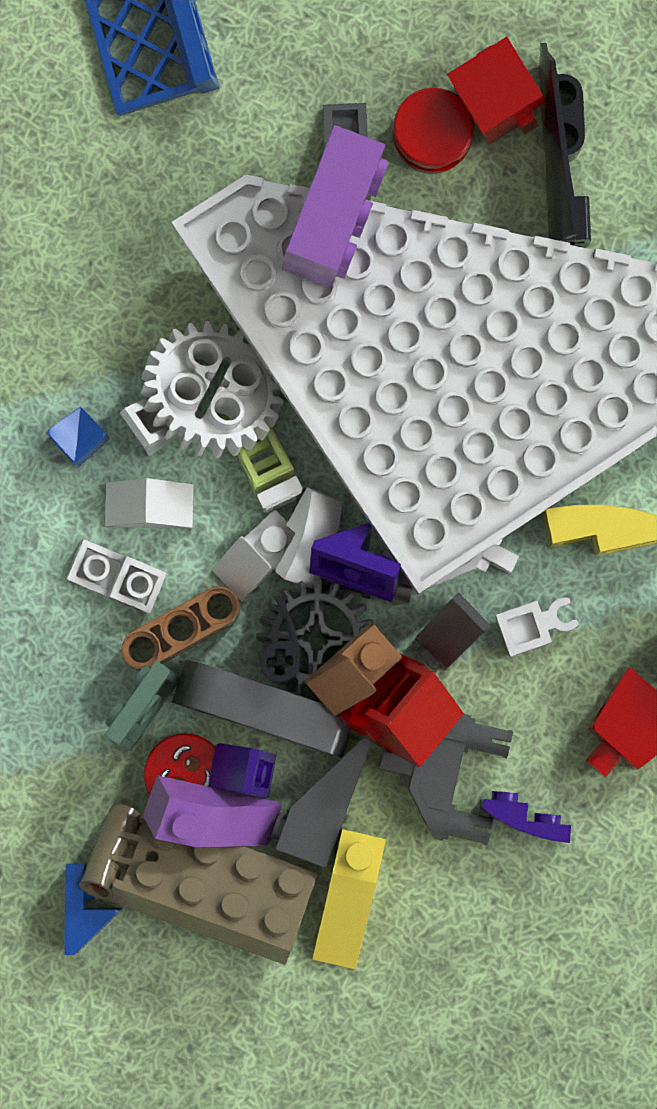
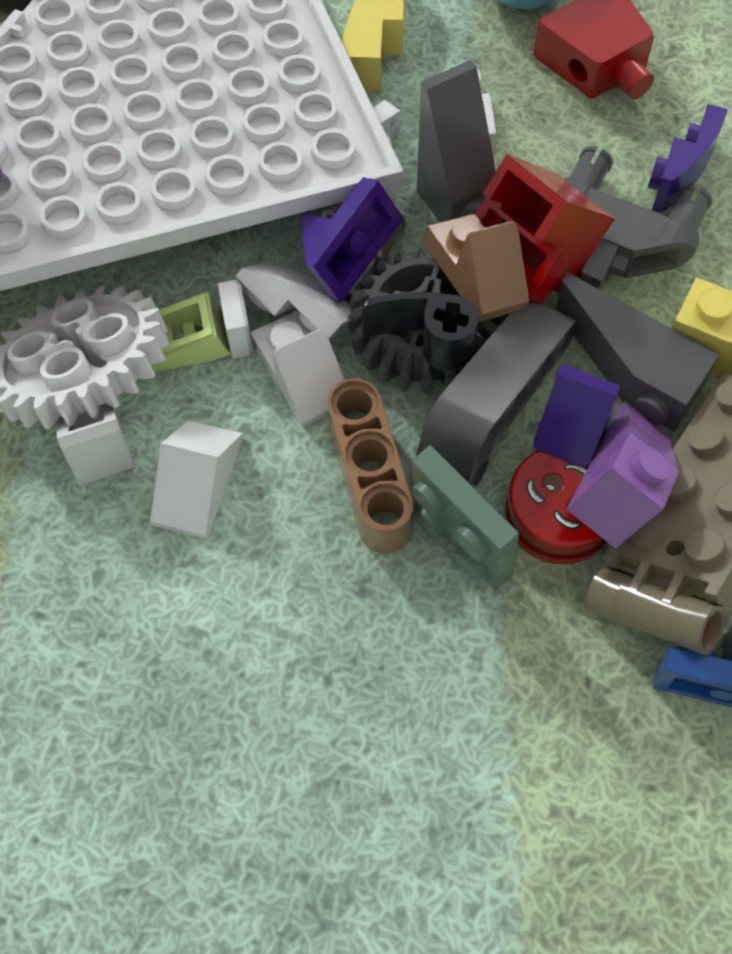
camera: 75 degrees left, 20 degrees down
(78, 436) = (77, 539): blue slope -> none
(115, 576) = (277, 537): white slope -> none

